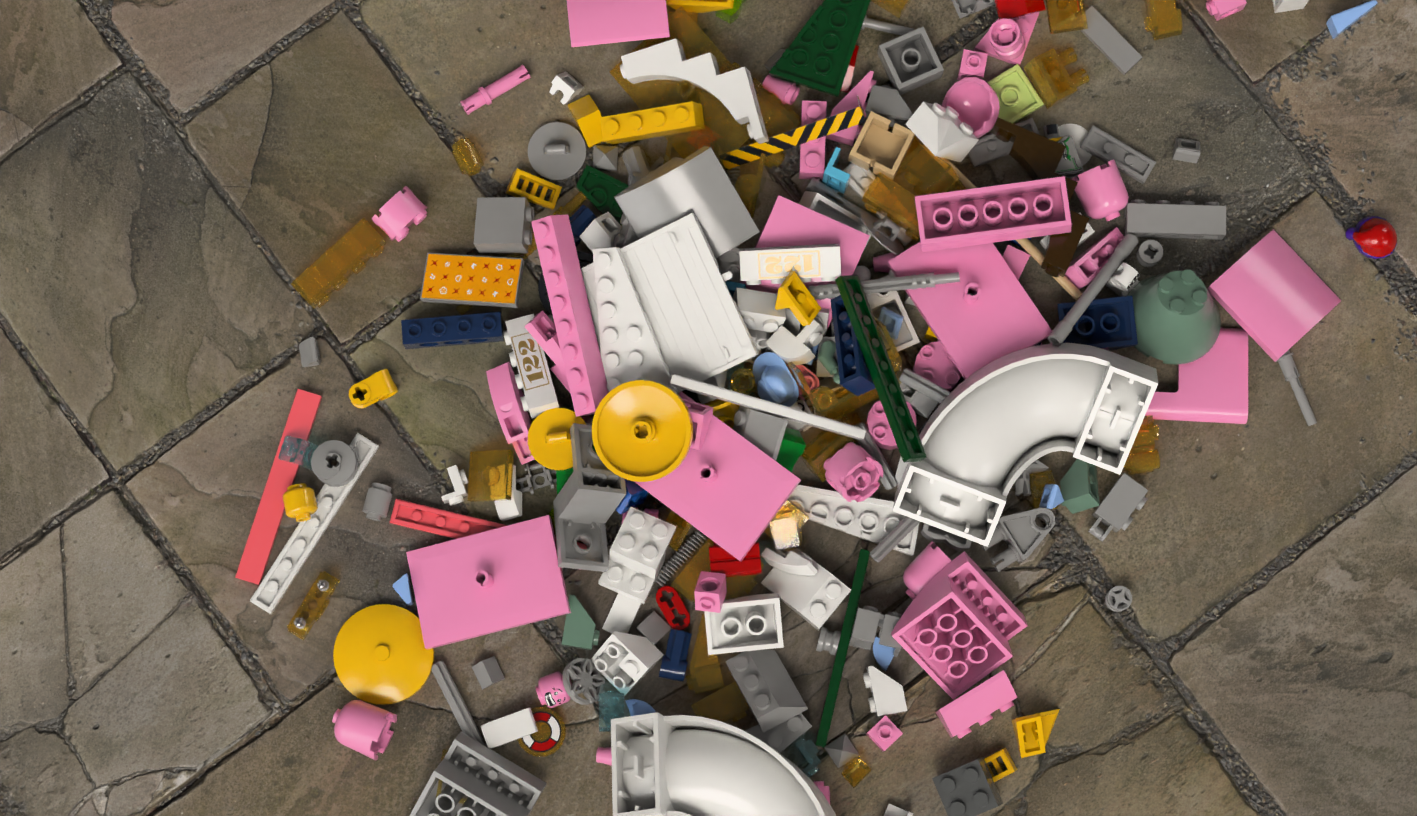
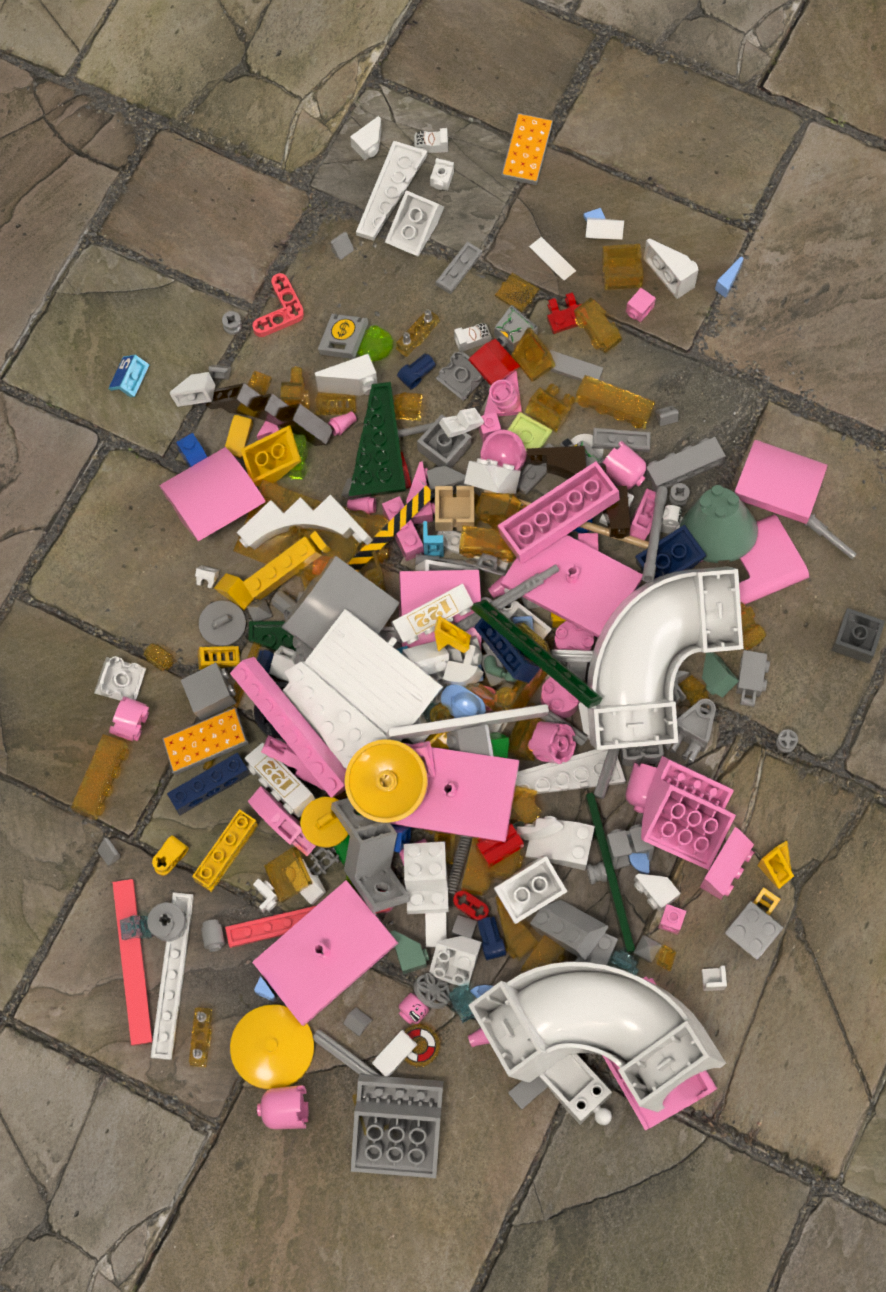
camera: 25 degrees left, 10 degrees down
(300, 502) = (154, 963): yellow head -> none
(412, 162) = (119, 679): none -> white slope
(435, 414) = (225, 850): none -> yellow brick
(495, 89) = (154, 603): bright pink pin -> none
(708, 114) = (320, 542): none -> yellow tile
(710, 592) = (494, 875): bright pink brick -> none
(940, 49) = (464, 422): none -> white slope
(1051, 496) = (702, 689): light blue slope -> none
(1133, 106) = (614, 402): none -> clear yellow brick
(1264, 519) = (858, 635): none -> dark grey brick
(1373, 237) = (826, 412): red piece -> none

